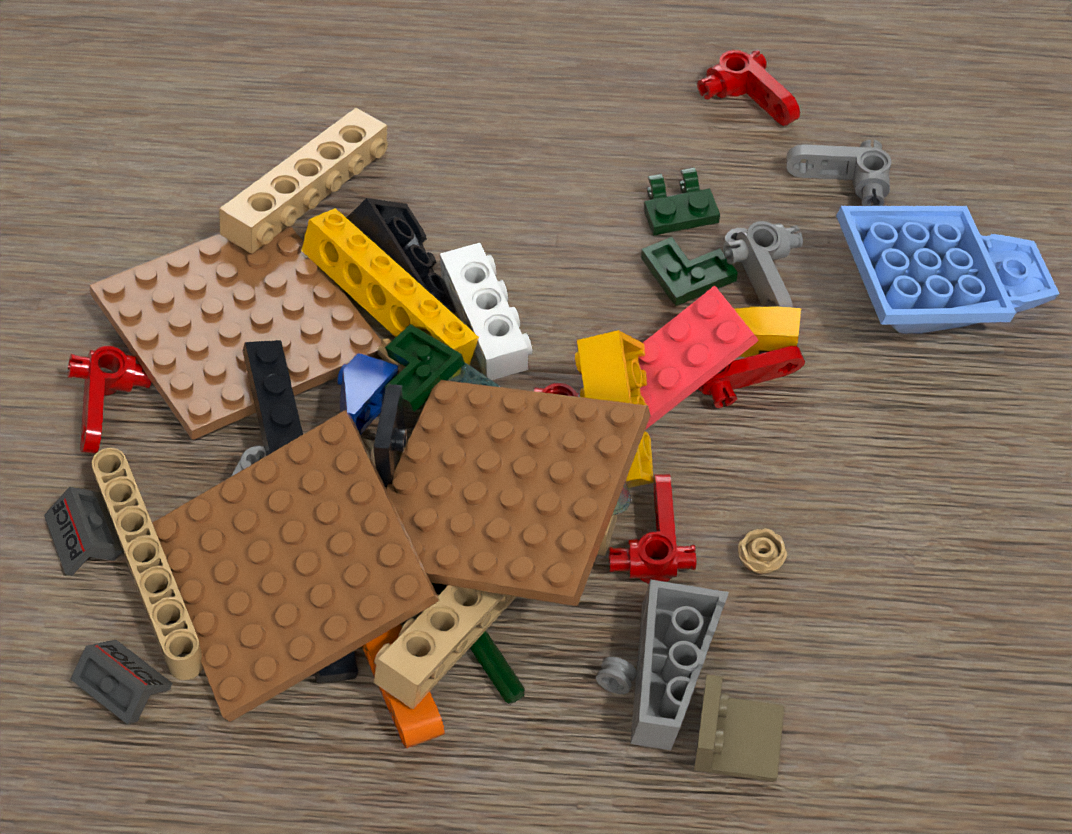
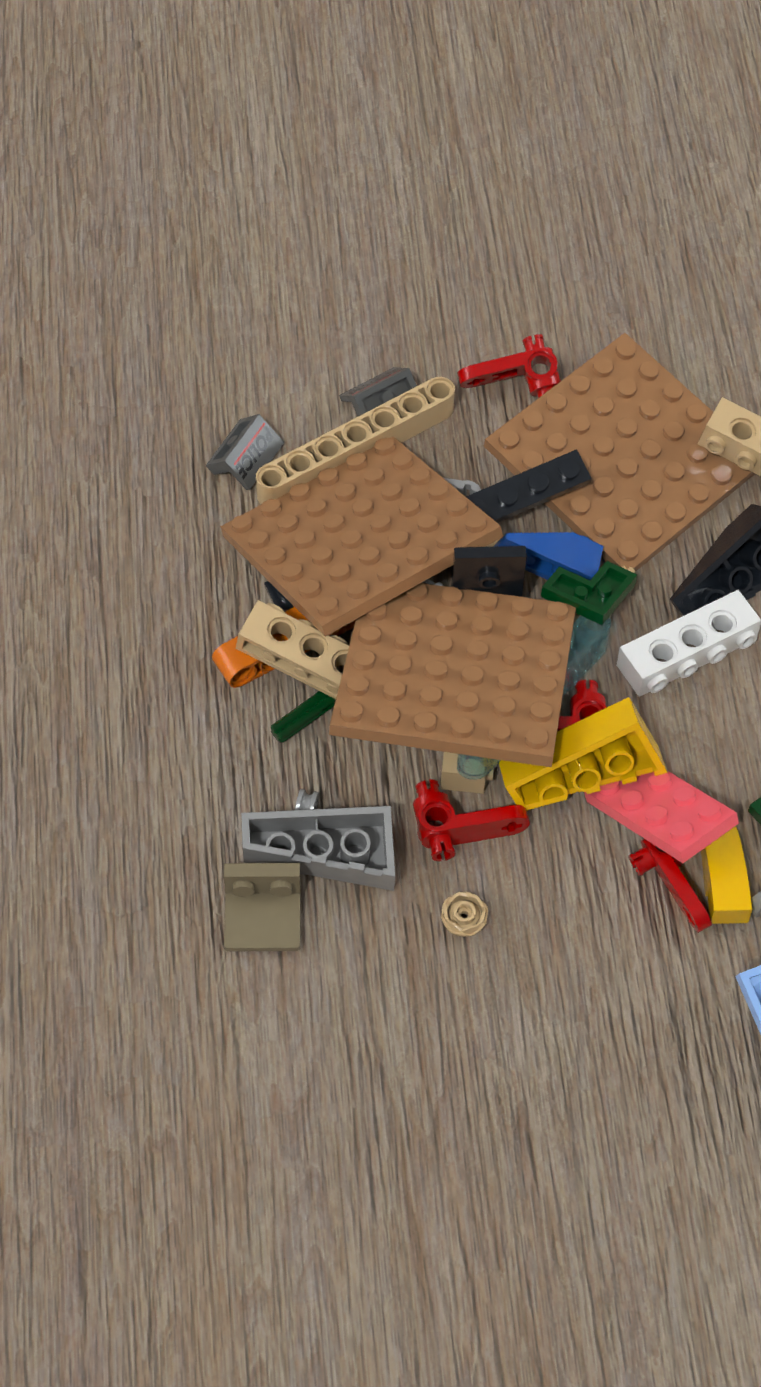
camera: 80 degrees right, 5 degrees up
(381, 283) = (680, 557): yellow brick -> none

